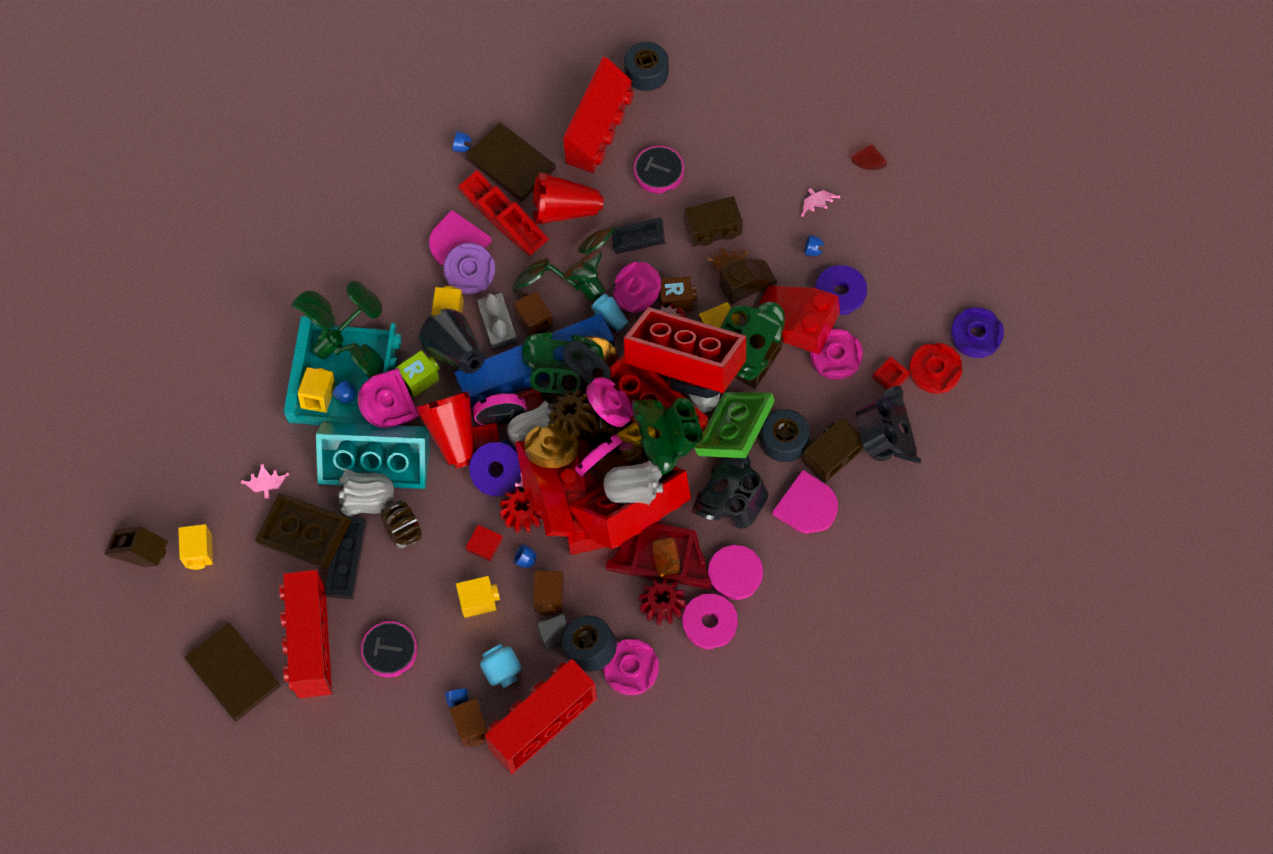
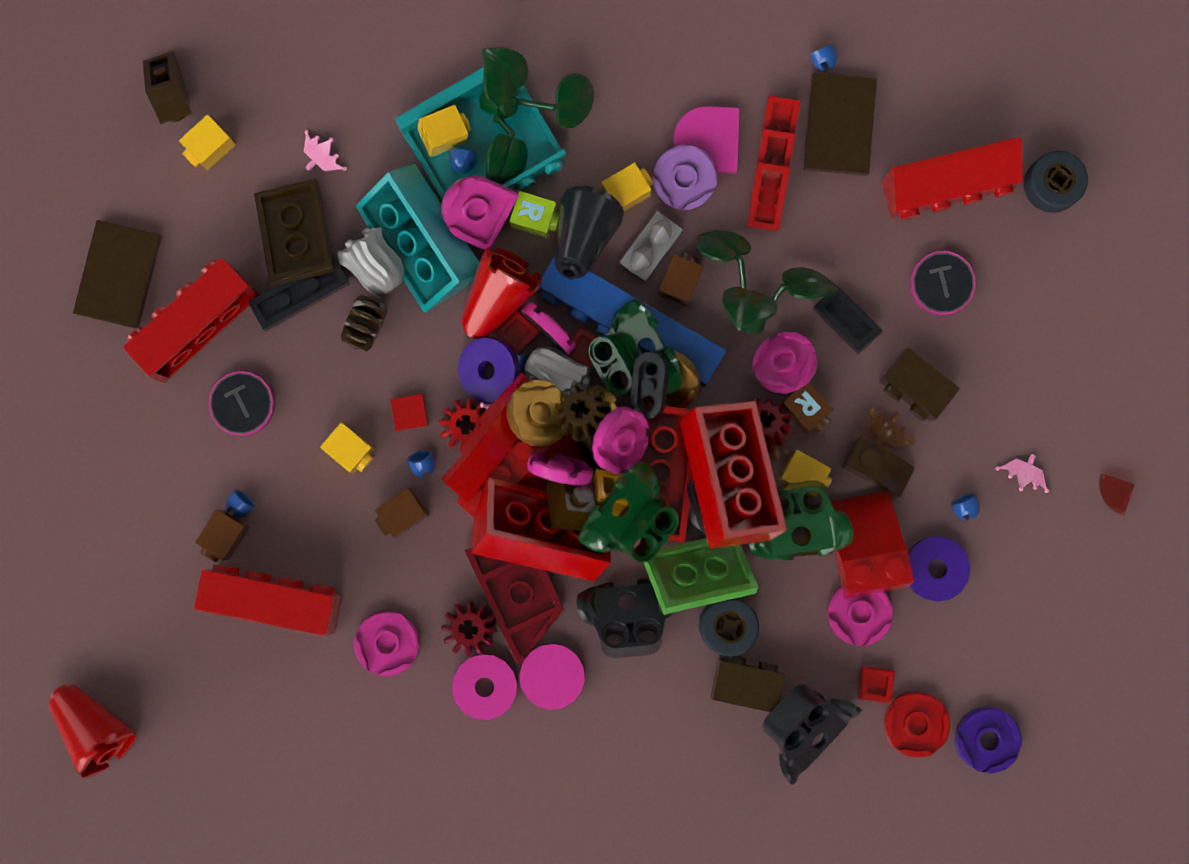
camera: 50 degrees right, 20 degrees up
(500, 666) = (296, 522): medium azure head -> none
(552, 631) = (365, 547): dark grey slope -> none
(563, 200) = (829, 215): red cone -> none
(589, 642) = (370, 580): black wheel -> none
(611, 312) = (738, 355): medium azure cone -> none
(633, 483) = (545, 530): light grey piece -> none
(666, 557) = (510, 605): clear orange slope -> none
(808, 505) = (673, 698): dark pink tile -> none

